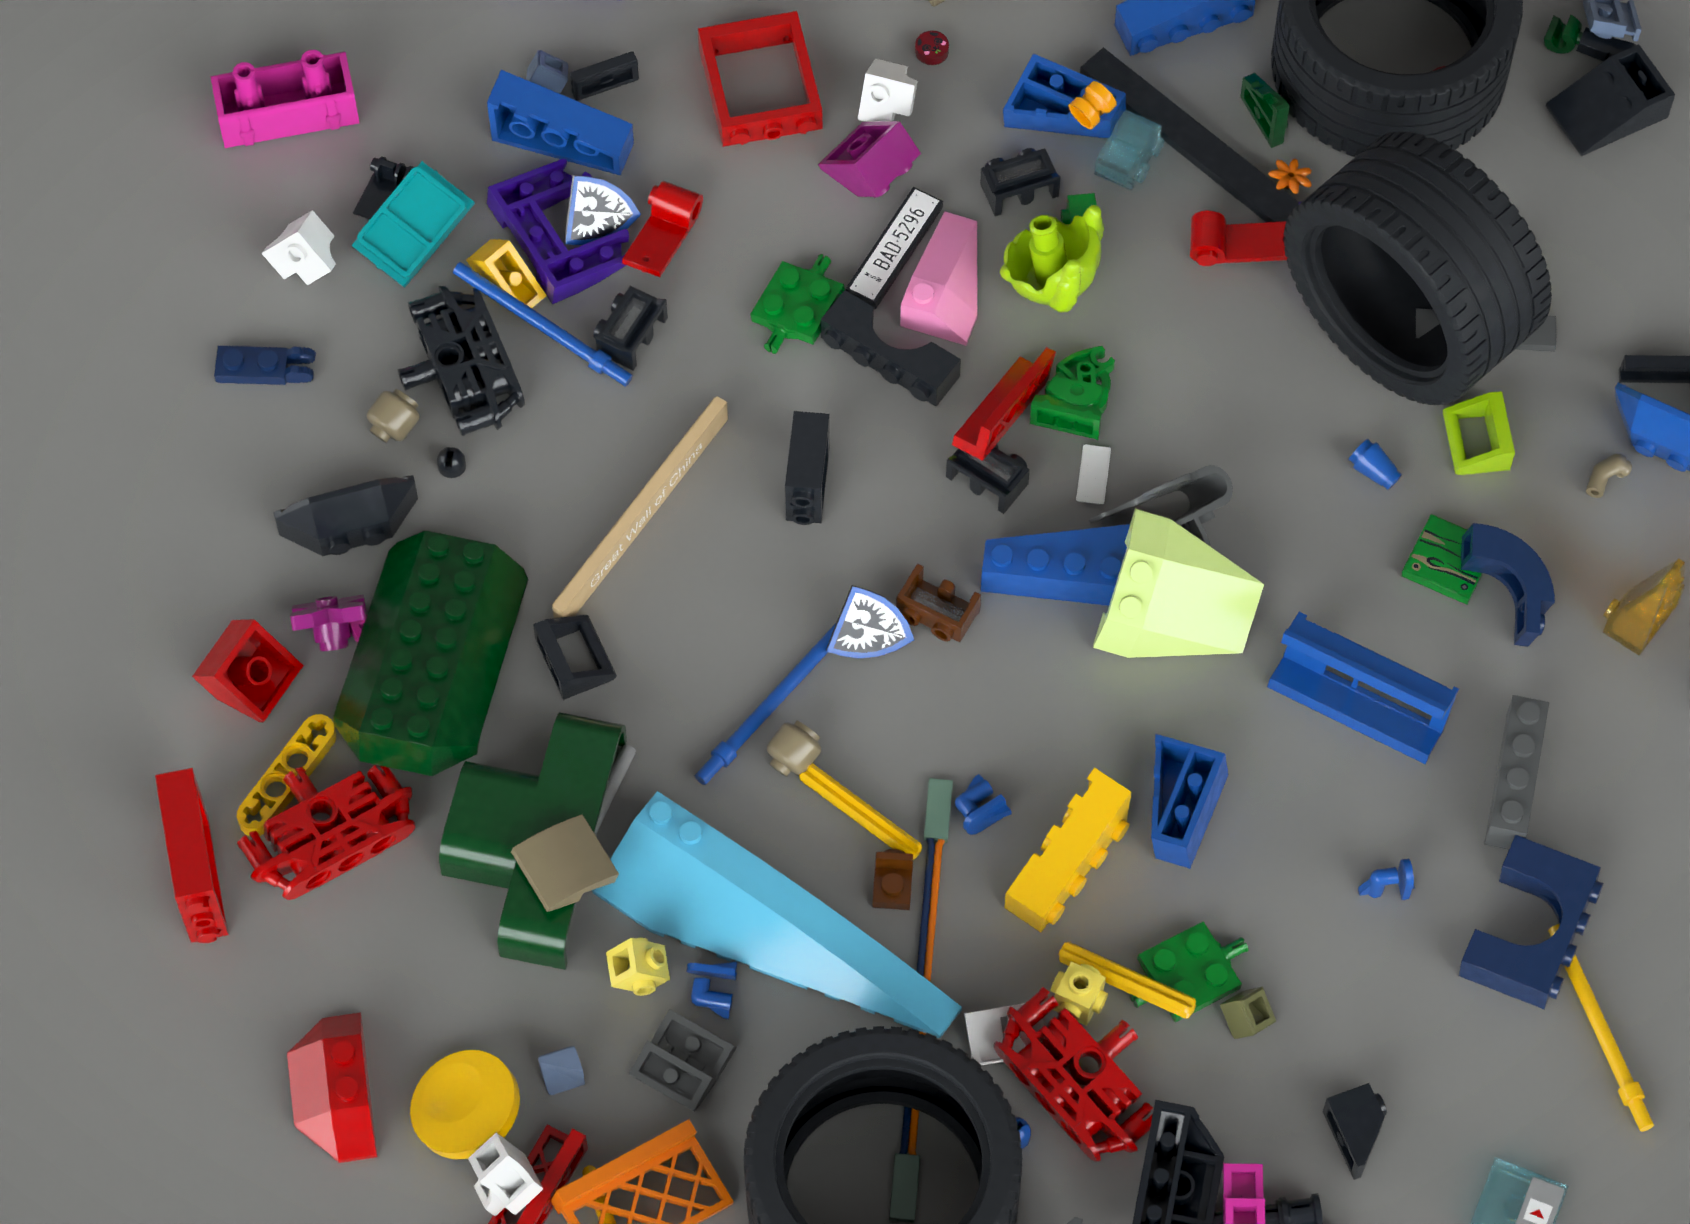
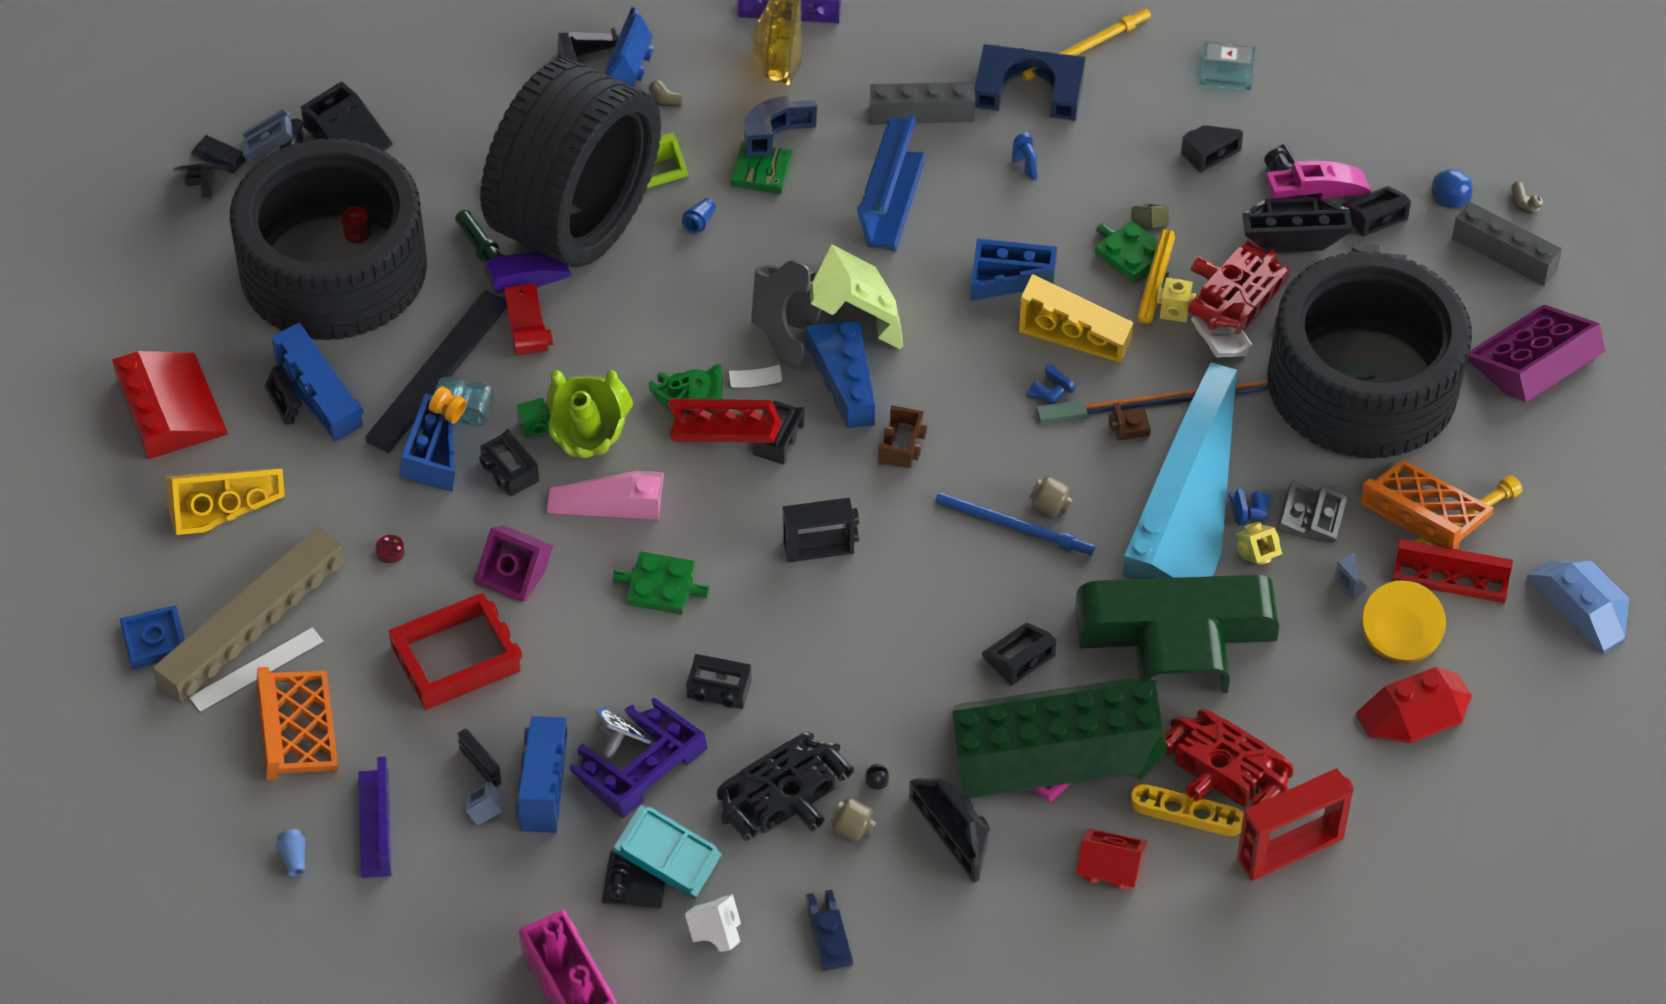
camera: 105 degrees left, 10 degrees down
(329, 619) = (1049, 806): magenta plant -> none
(503, 1176) = (1451, 579): white brick -> none
(505, 268) = (694, 778): yellow slope -> none
(564, 863) = (1213, 580): dark tan slope -> none
(597, 360) = (753, 701): blue bar -> none
(641, 510) = (884, 635): tan tile -> none
(671, 219) = (602, 683): red door -> none
(860, 811) = (1084, 448): yellow axle -> none
(868, 626) = (932, 472): shield -> none
(886, 92) = (449, 560): white brick -> none
(894, 247) = (590, 533): tile -> none
(923, 371) = (701, 485): black arch -> none
(1266, 108) = (404, 321): dark green wing -> none
(1290, 175) = (457, 303): orange plant -> none

